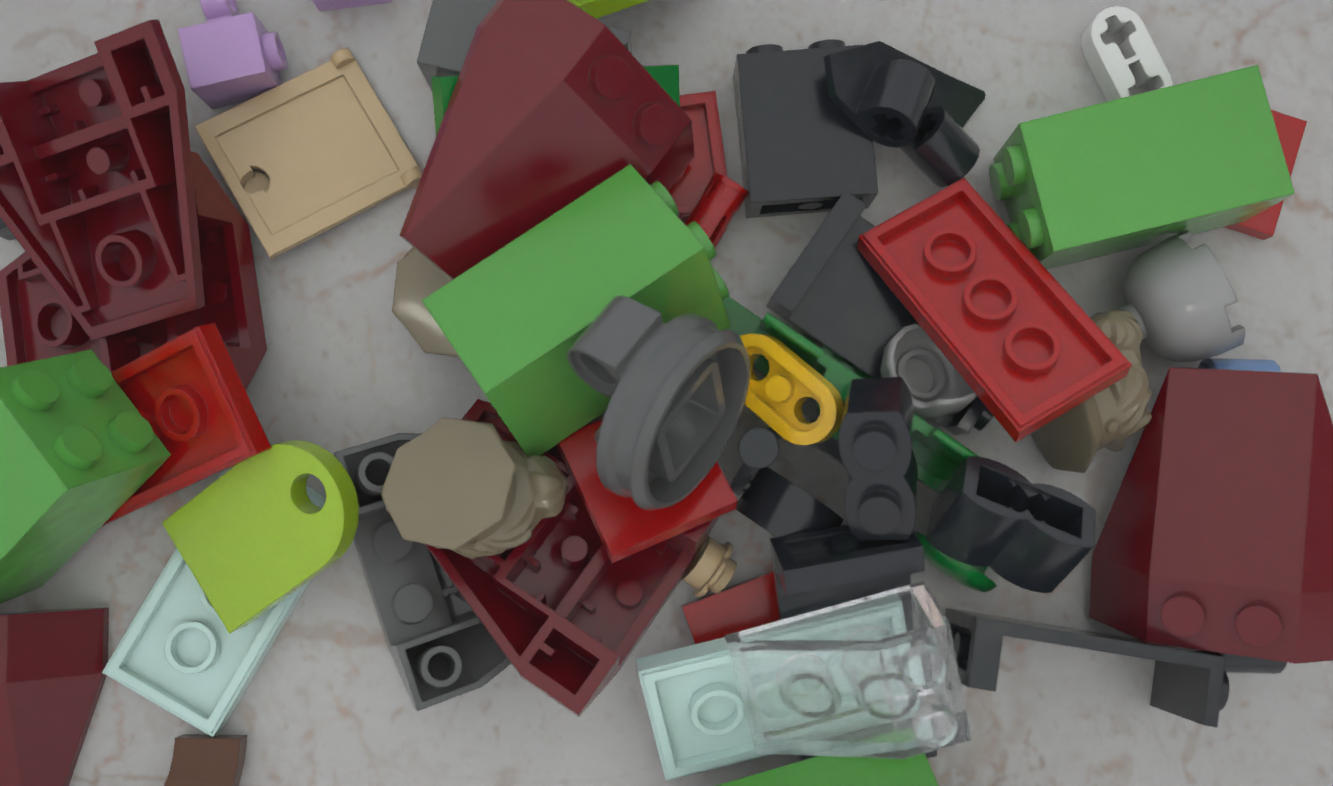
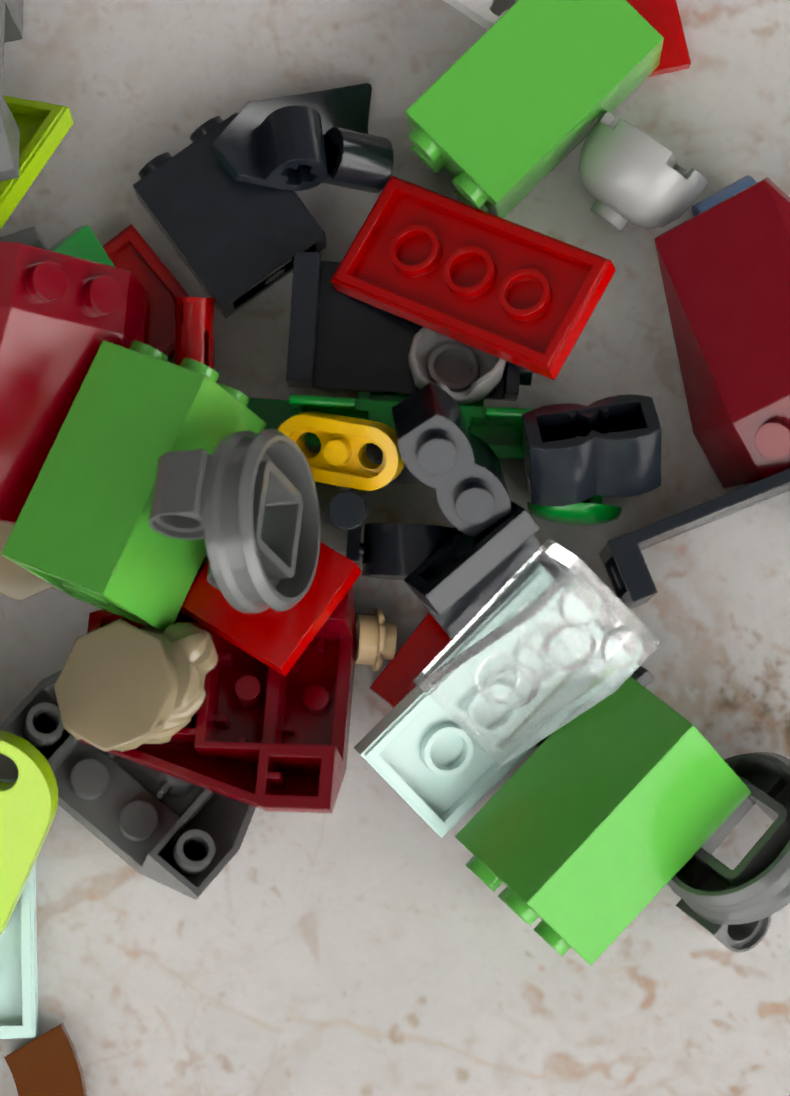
camera: 25 degrees left, 0 degrees up
(1109, 415) = (627, 305): dark tan piece -> none

